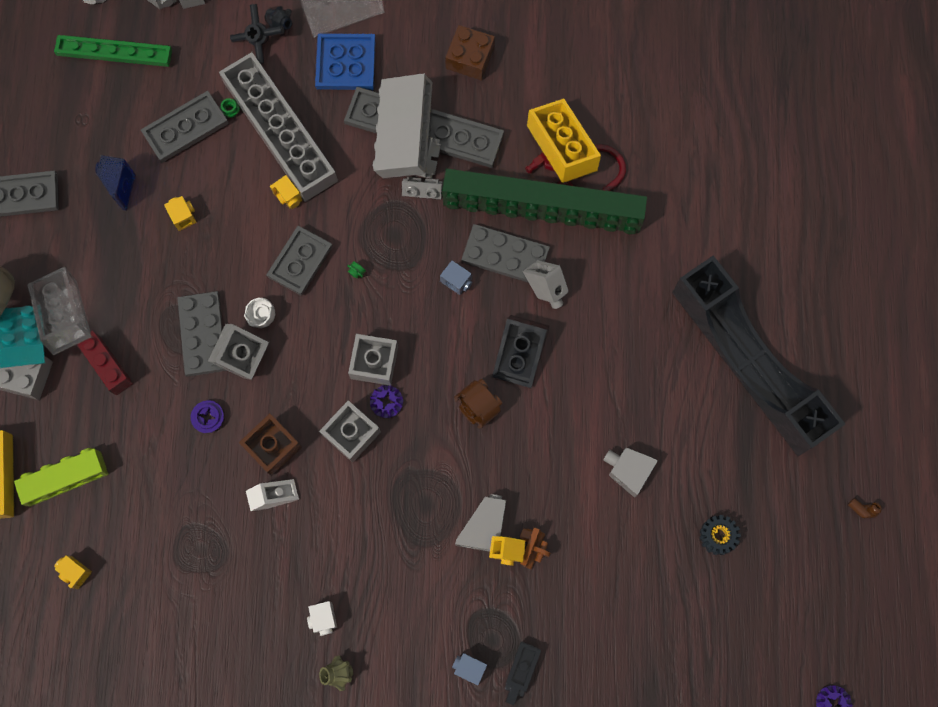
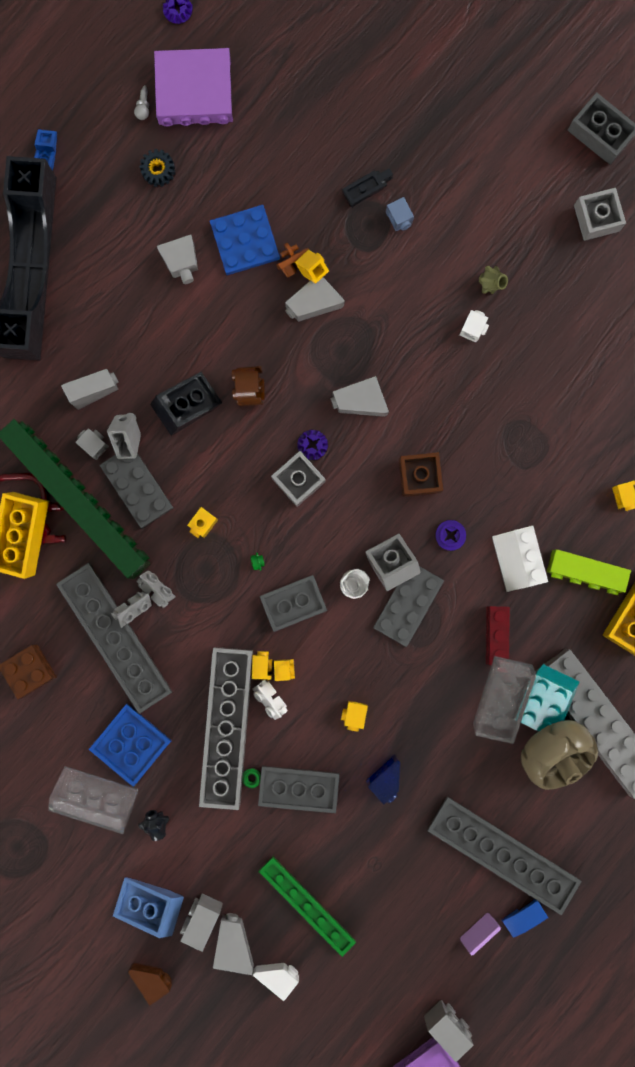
camera: 145 degrees left, 10 degrees up
(130, 442) = (519, 559): none -> white slope
(253, 172) = (263, 694): none -> white hinge
(257, 33) = (188, 828): black bar -> none
(266, 203) = (284, 669): none -> yellow brick
(271, 494) = (446, 438): white slope -> none
(350, 431) = (356, 438): light grey brick -> none
(374, 470) = (360, 399): none -> light grey slope
(403, 126) = (131, 644): light grey brick -> none
(426, 265) = (202, 523): none -> yellow brick
(456, 278) = (188, 494): sand blue brick -> none
(570, 257) = (92, 443): none -> light grey brick
(590, 533) = (244, 240): none -> blue plate
(608, 298) = (90, 388): none -> light grey slope
(753, 636) = (193, 86): none -> medium lavender panel
(779, 577) = (141, 110): none -> light grey bar
(828, 473) = (46, 146): none -> blue slope
(865, 511) = (44, 106): reddish brown arm -> none

